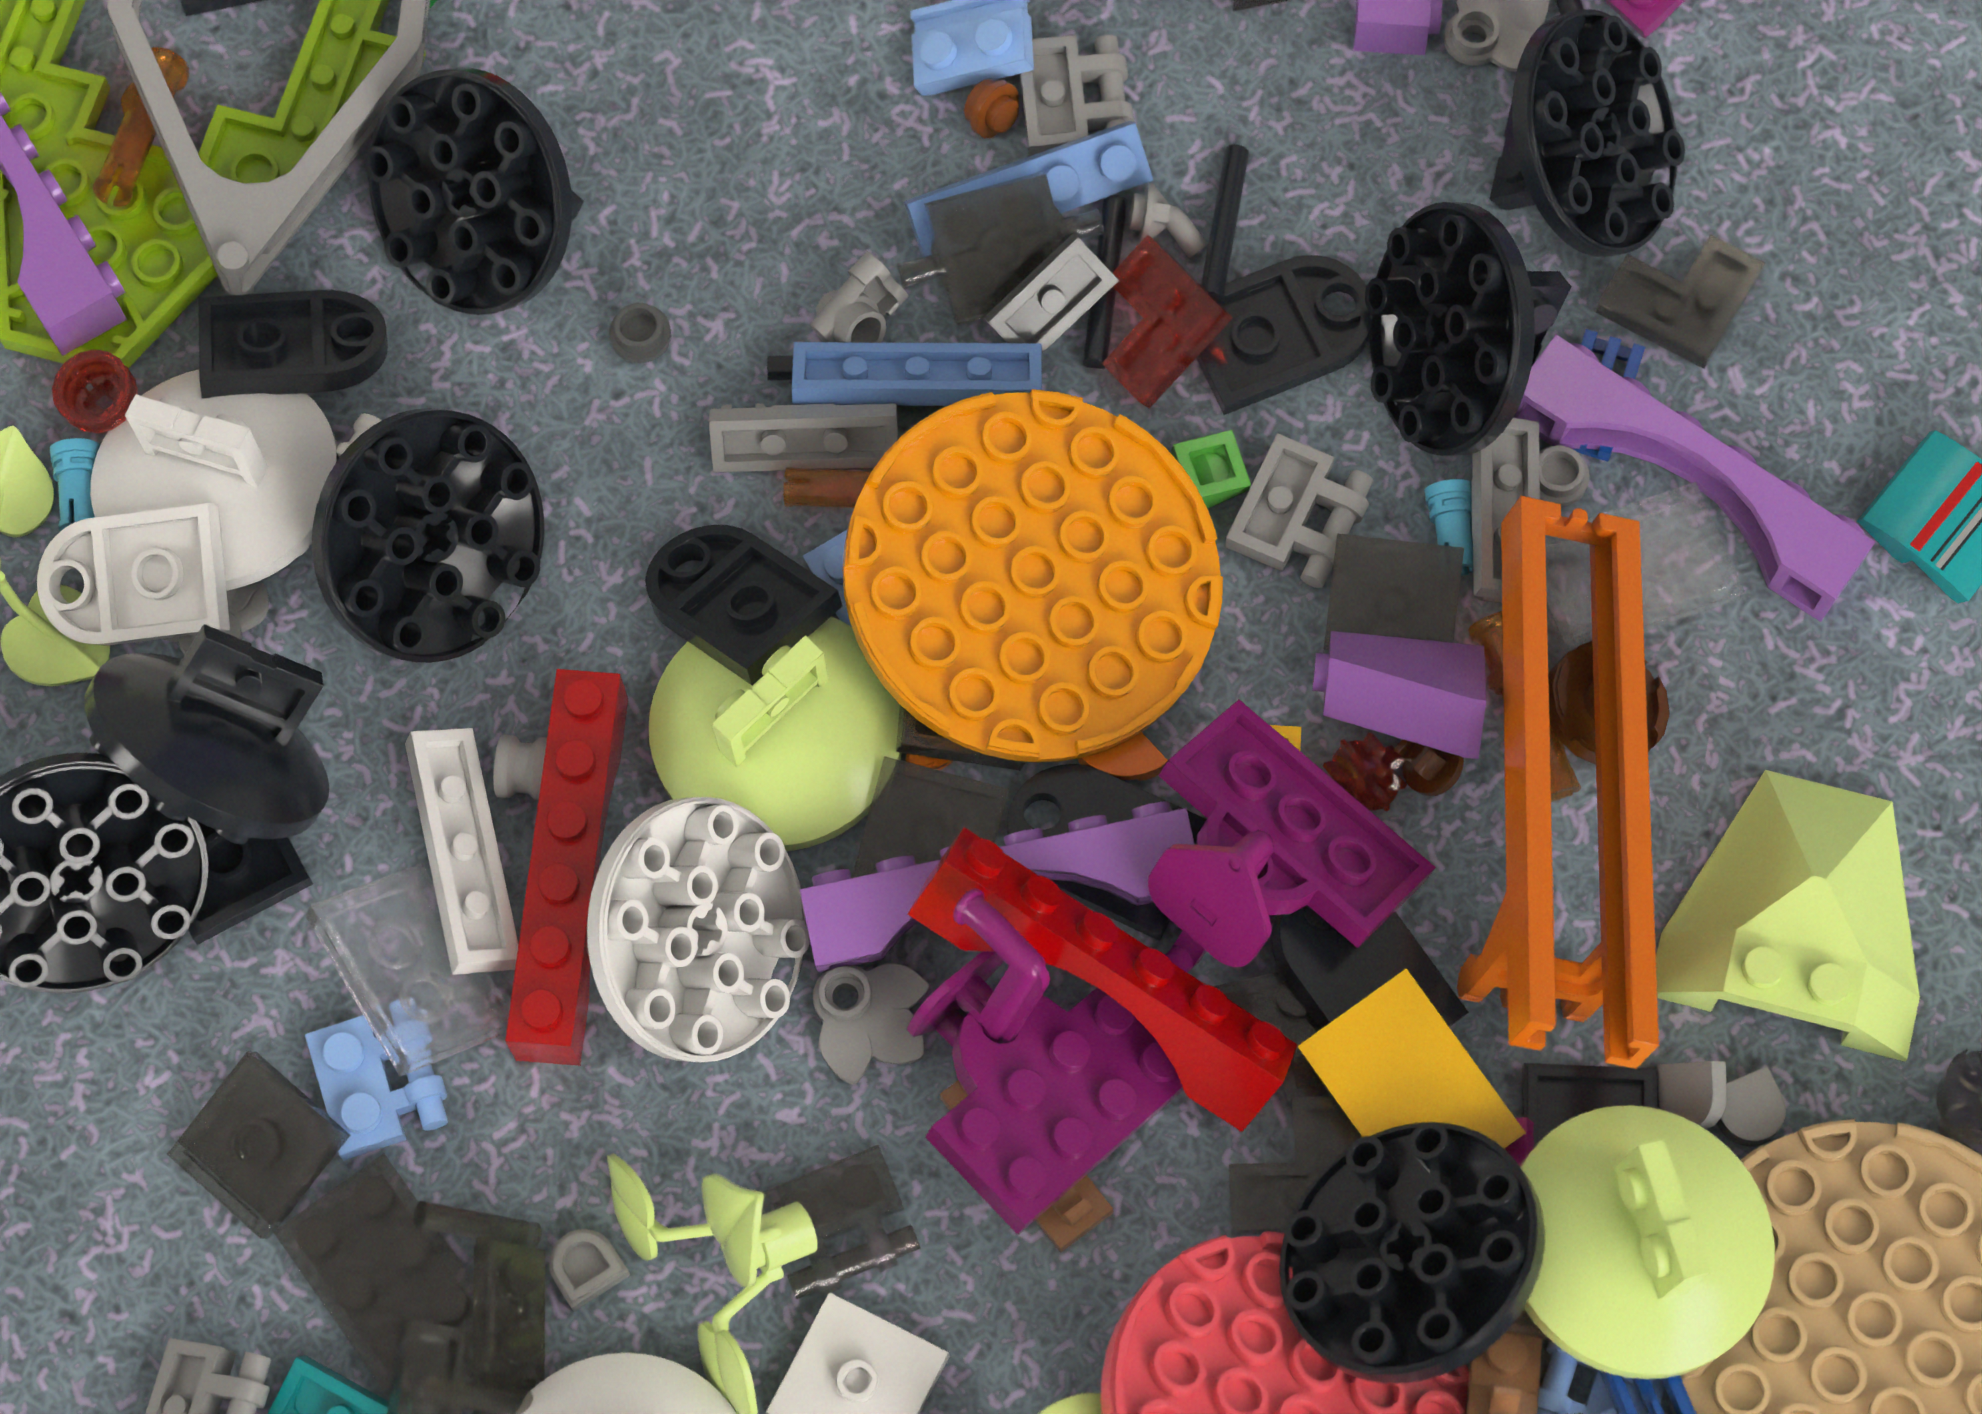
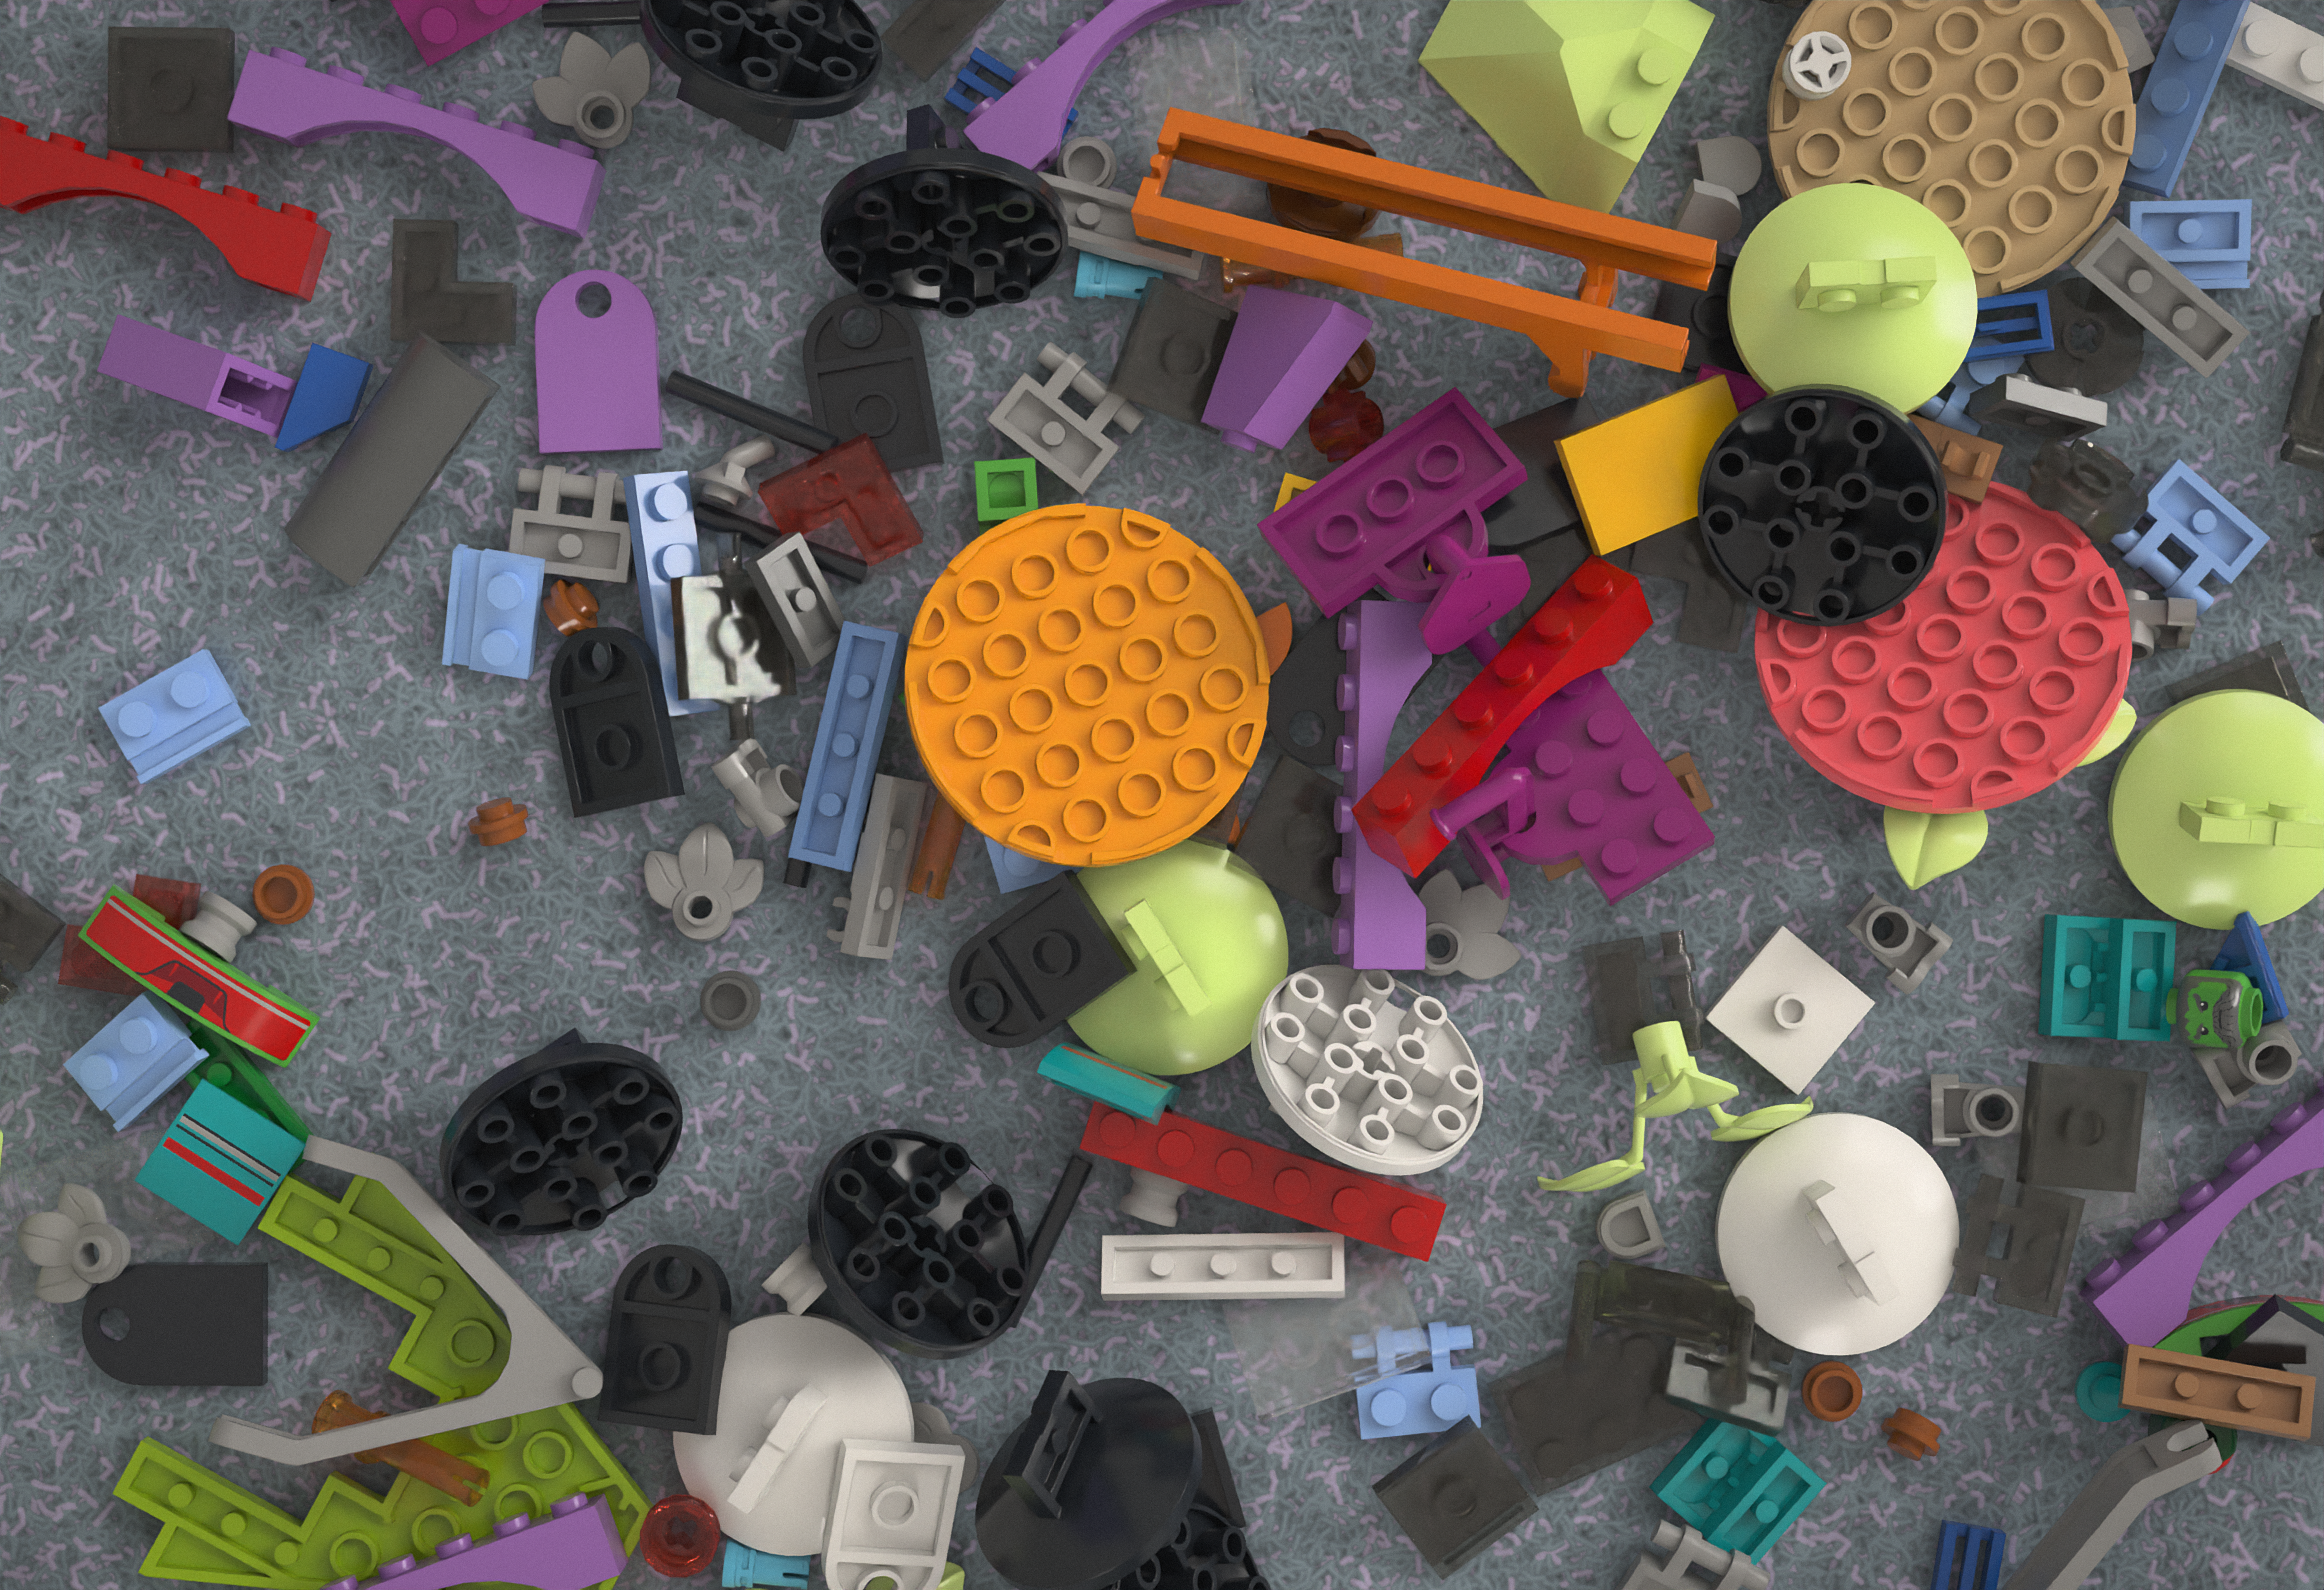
camera: 80 degrees left, 20 degrees up
(458, 679) = (1054, 1222): none -> black bar
(632, 681) = (1109, 1082): none -> teal slope
(759, 283) = (703, 873): none -> light grey plate
(770, 89) = (499, 821): none -> dark orange plate
(889, 163) = (613, 723): none -> black tile
(1229, 85) = (597, 373): none -> medium lavender tile
(1893, 1139) = (1828, 61): none -> white wheel

